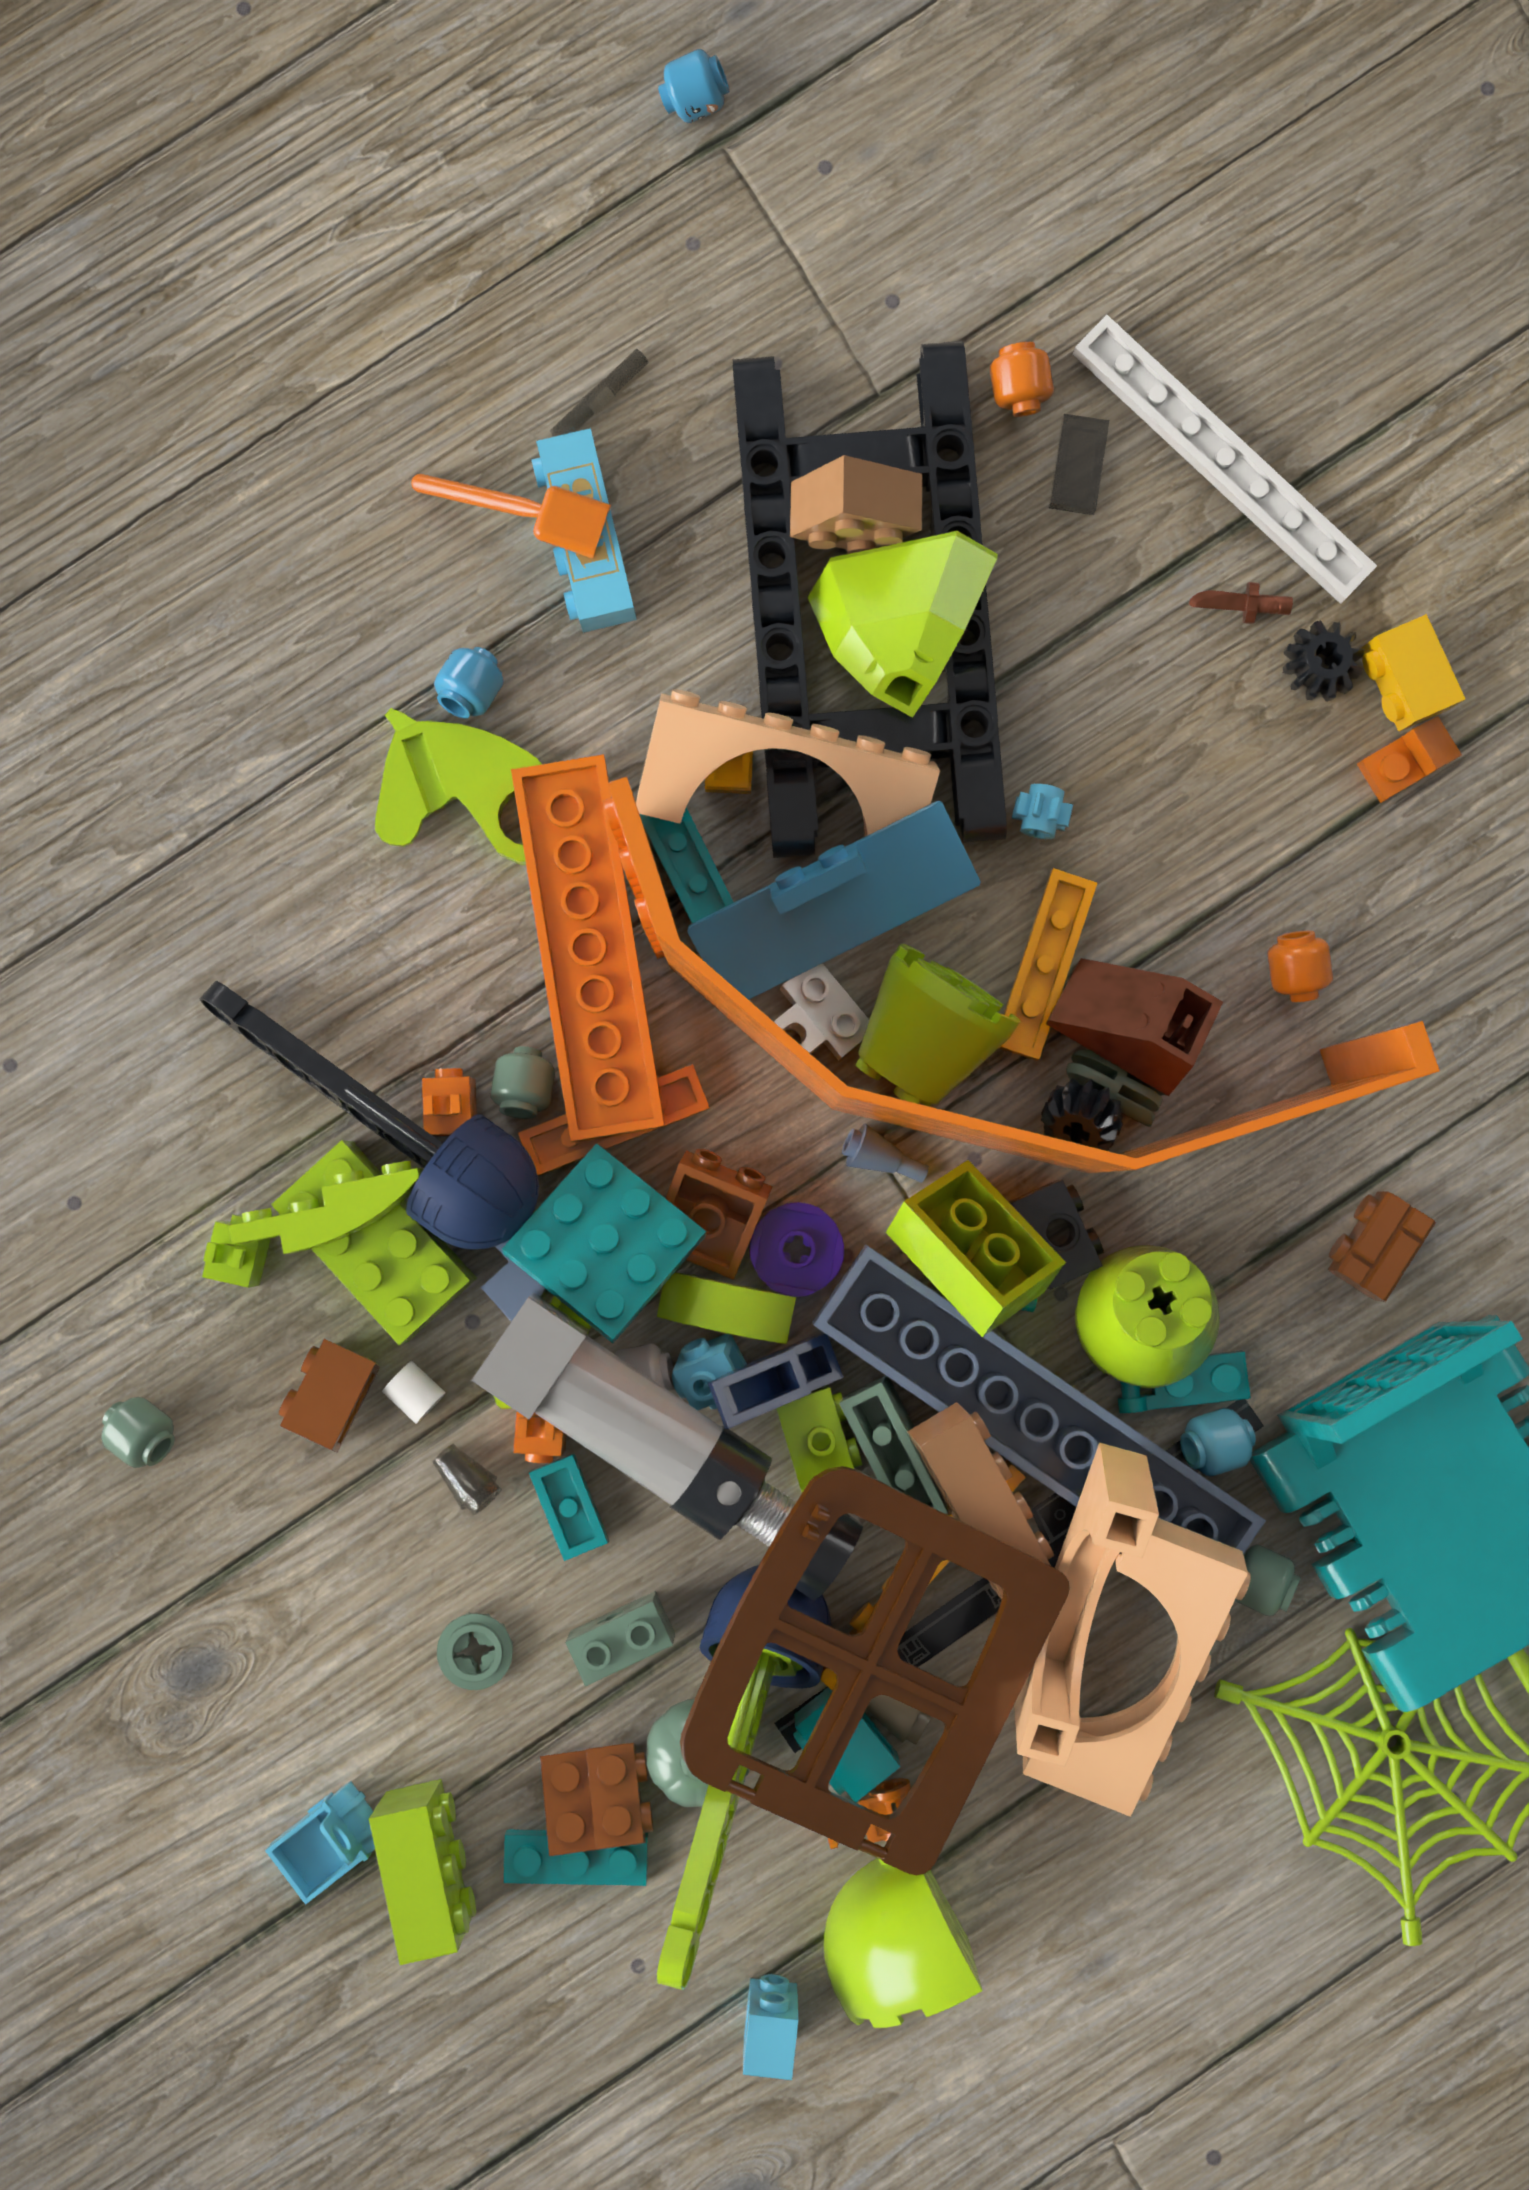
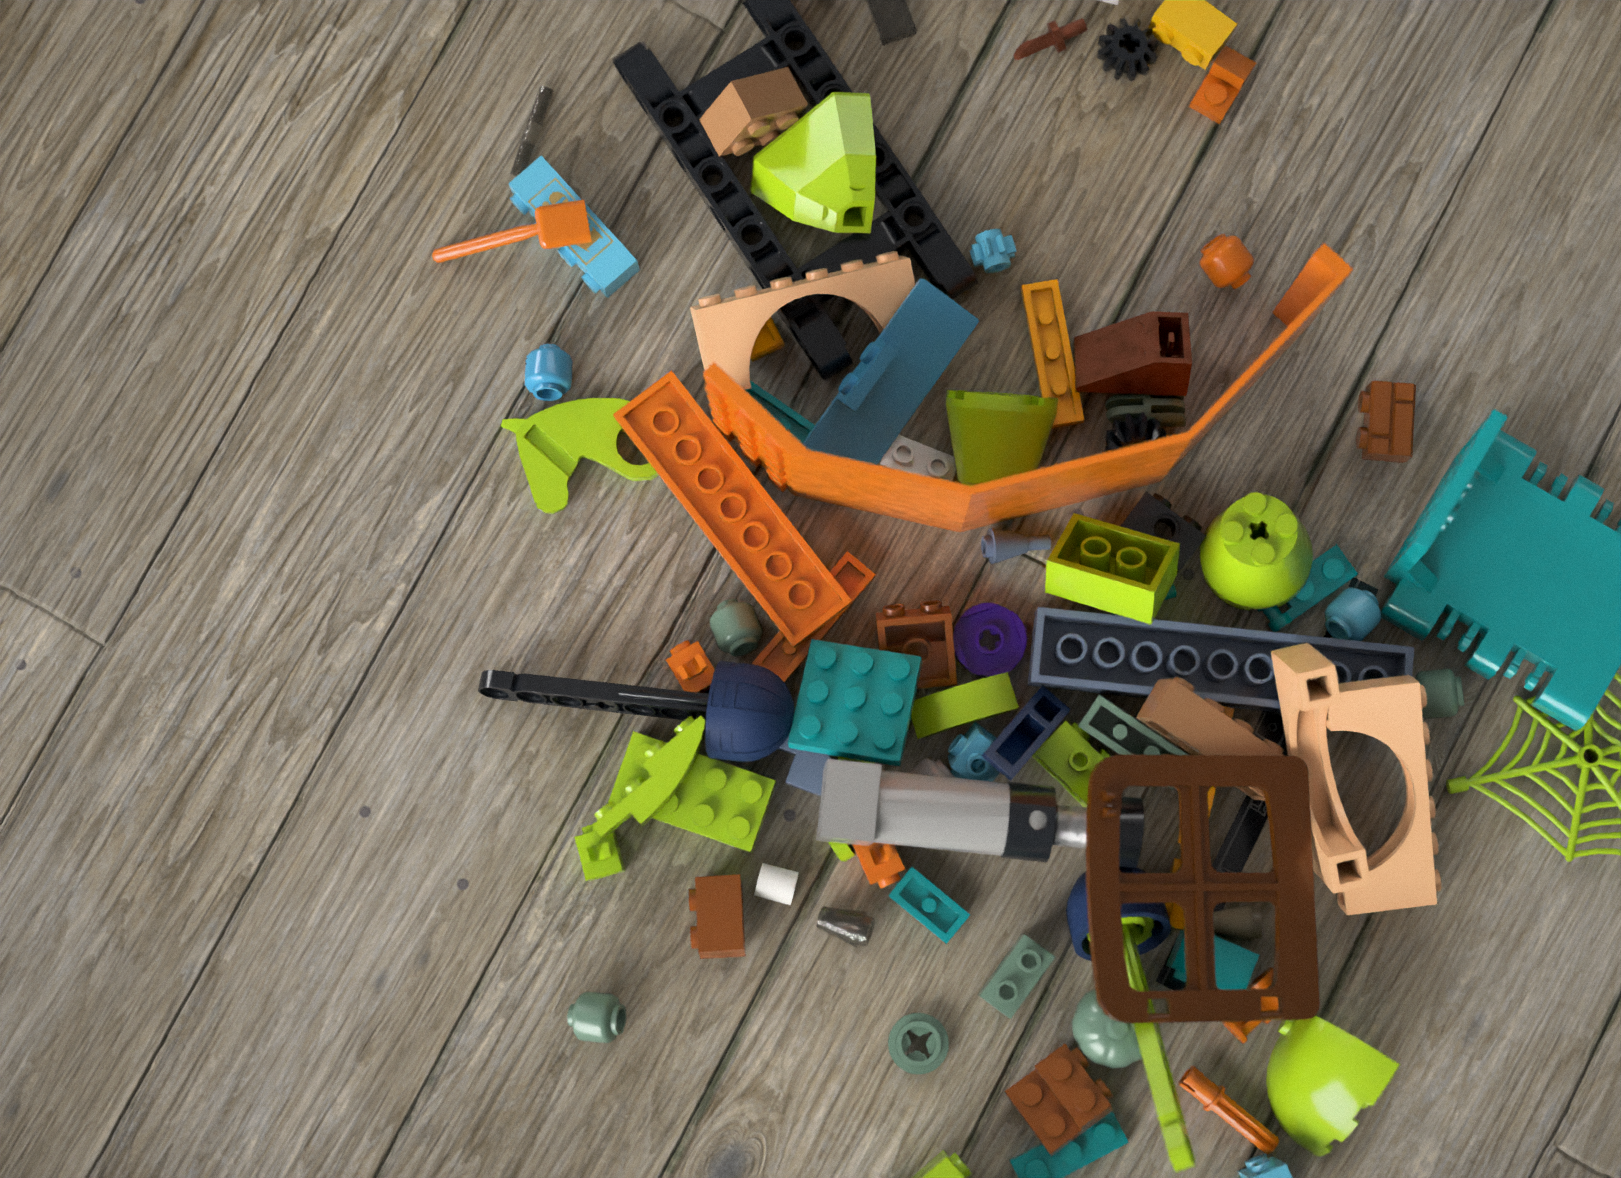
camera: 25 degrees left, 5 degrees down
(766, 1890) = (1214, 1098): none -> orange axle

